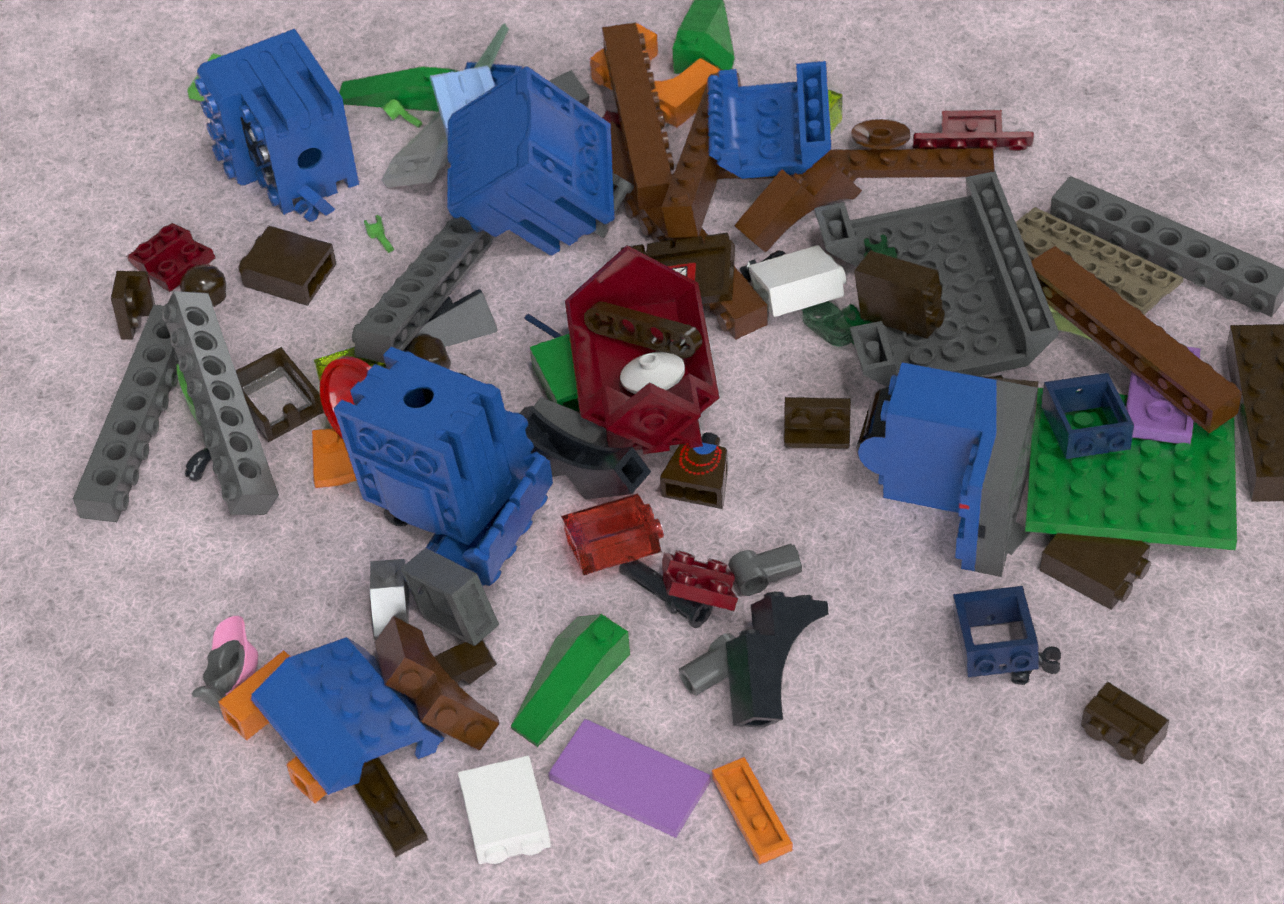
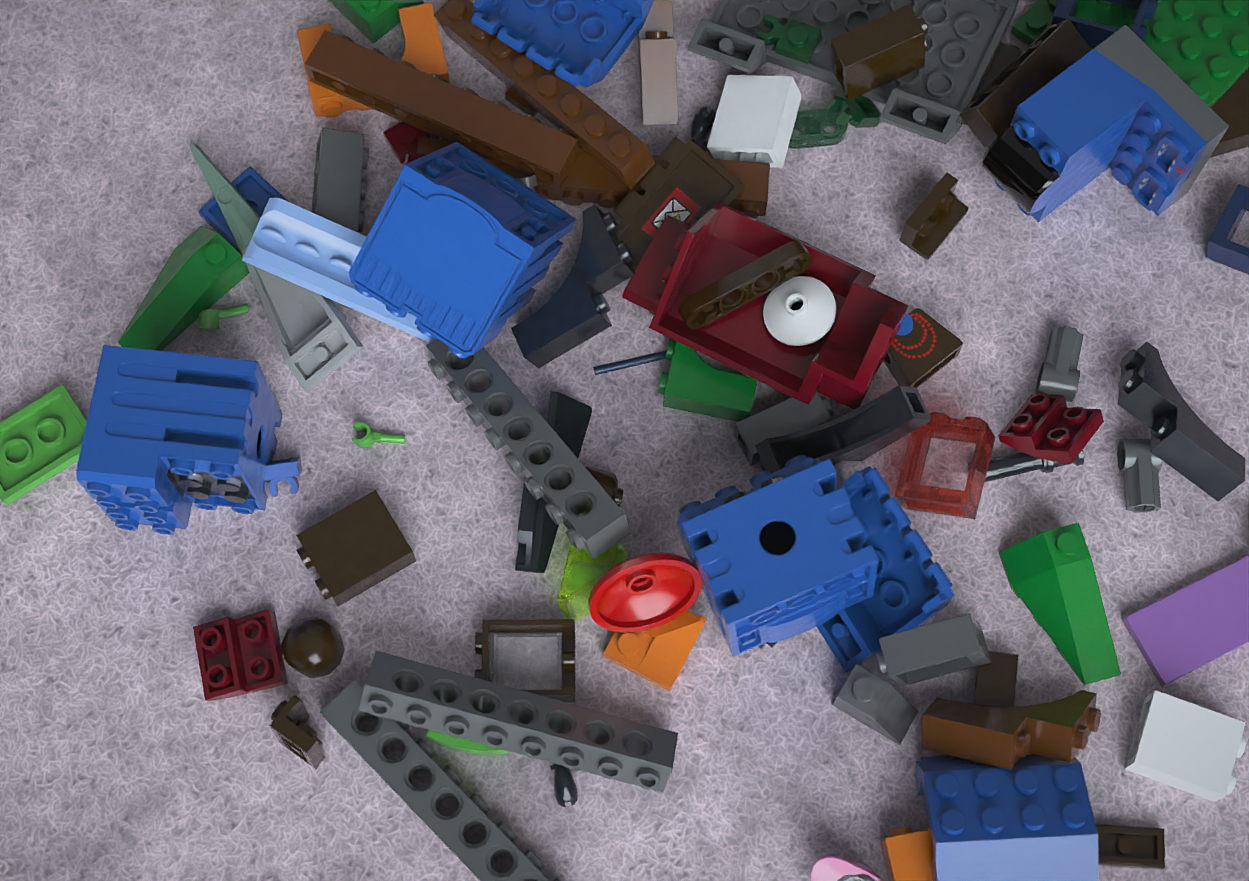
camera: 60 degrees left, 20 degrees up
(557, 264) = (578, 306): none -> black arch

